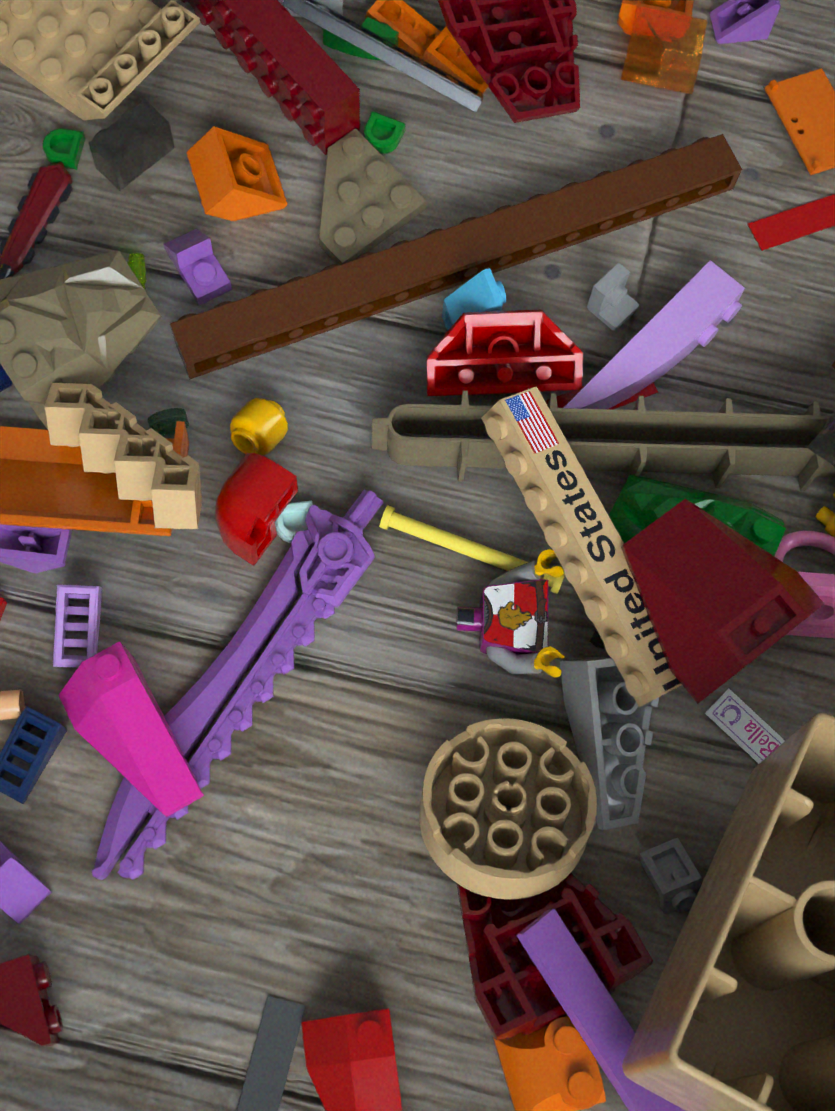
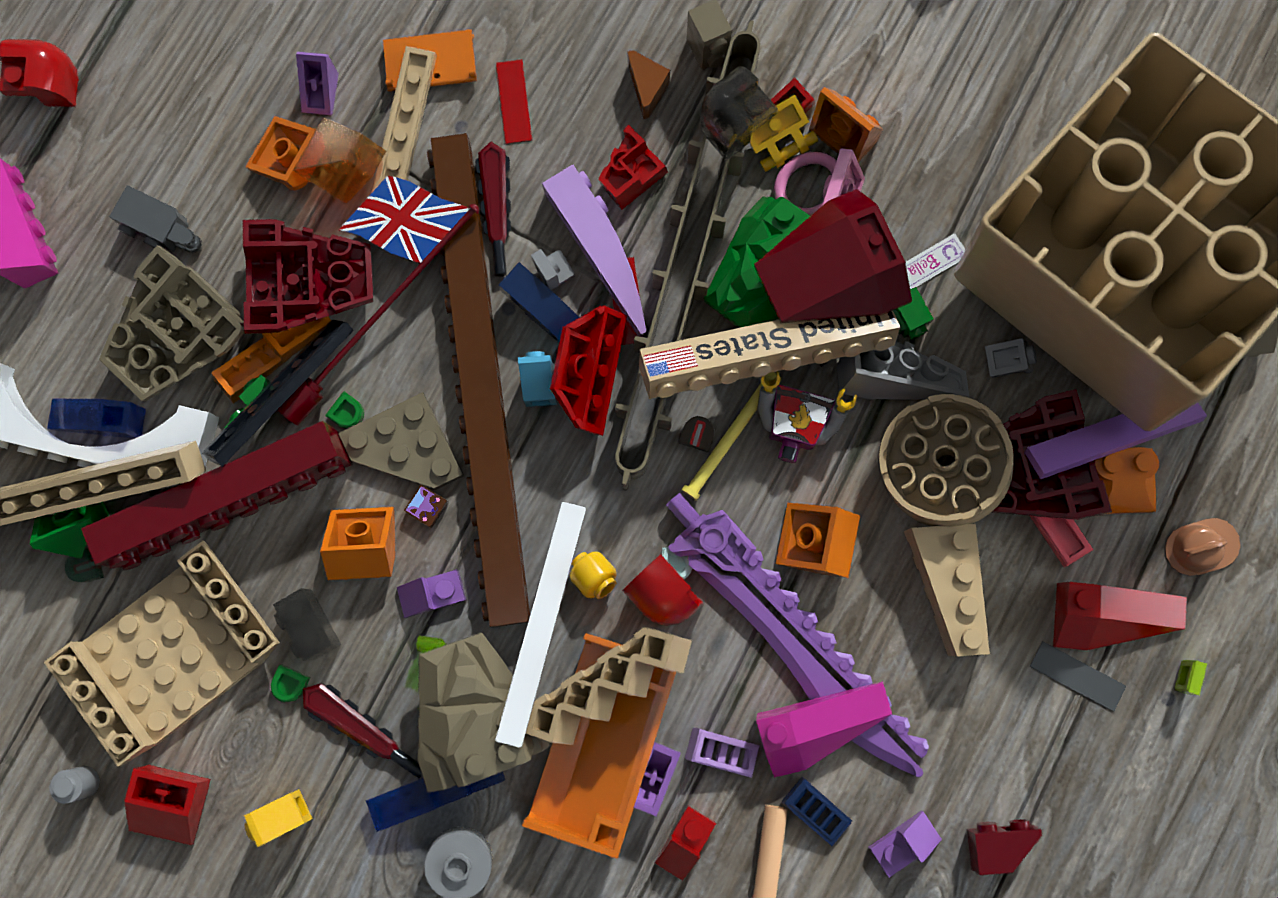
camera: 65 degrees left, 10 degrees up
(165, 421) = (570, 646): clear green tile -> none
(185, 377) = (540, 626): none -> white sticker
(296, 236) = (426, 506): none -> tile
(356, 857) = (953, 584): none -> tan wedge
(366, 680) = (818, 539): none -> orange slope
(449, 1004) = (1063, 538): none -> coral tile
(462, 510) = (697, 433): none -> dark brown tile
(572, 285) = (537, 301): none -> dark blue slope
(612, 136) = (405, 224): none -> flag
(689, 728) = (914, 316): none -> green window
(690, 221) = (494, 187): none -> dark red sword
(716, 111) = (406, 114): none -> tan tile
(762, 362) = (631, 169): none -> red slope

